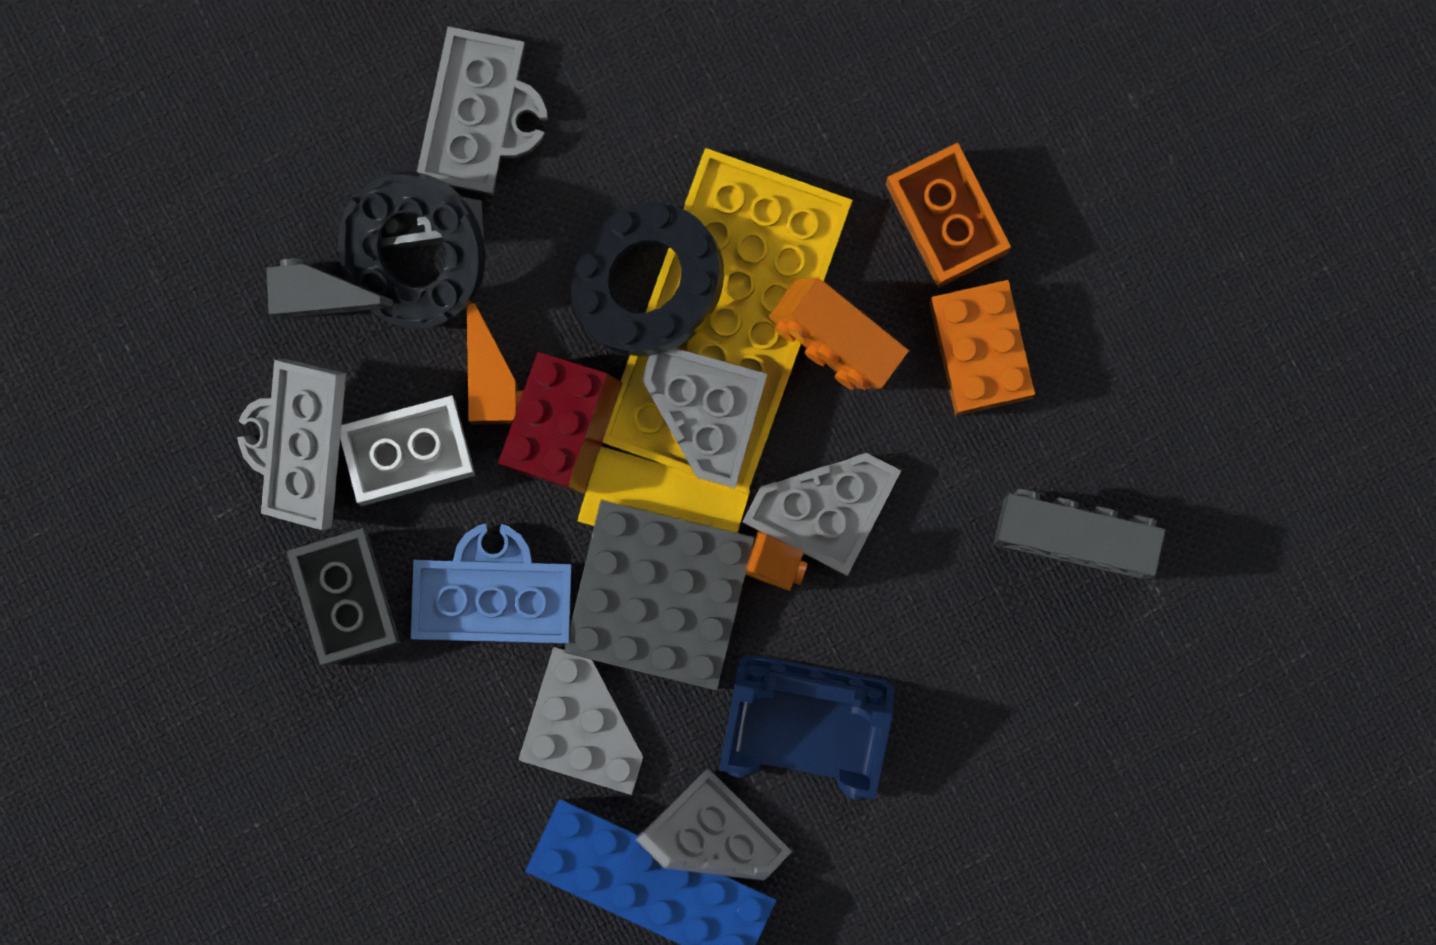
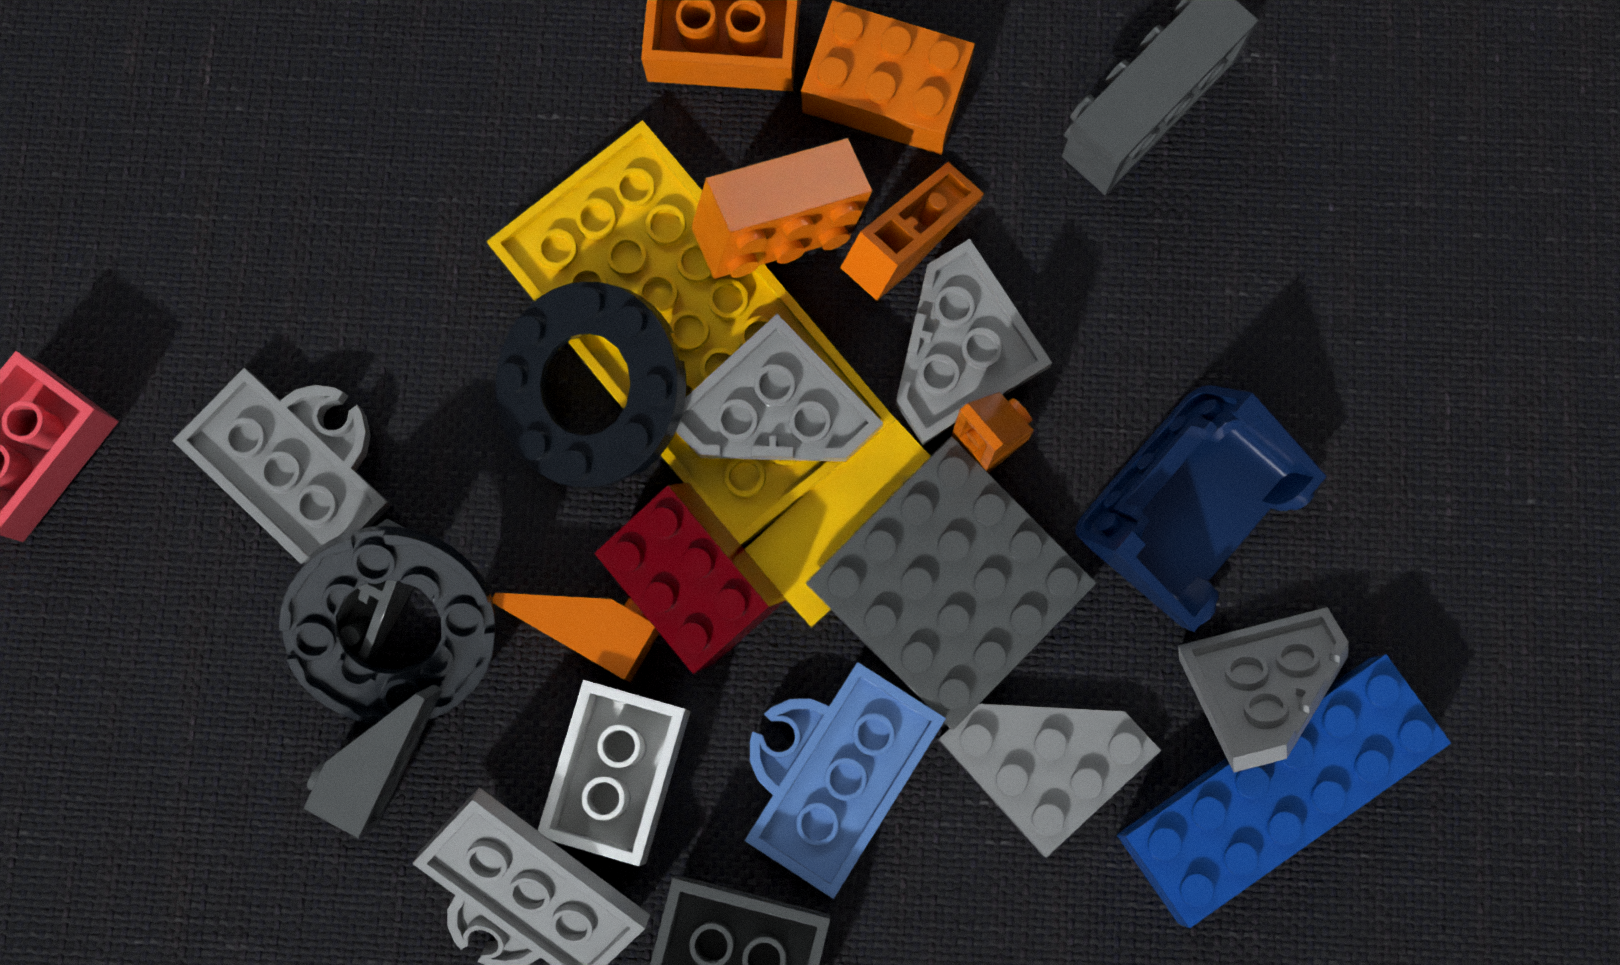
camera: 55 degrees left, 5 degrees down
(885, 427) = (909, 230): none -> orange slope

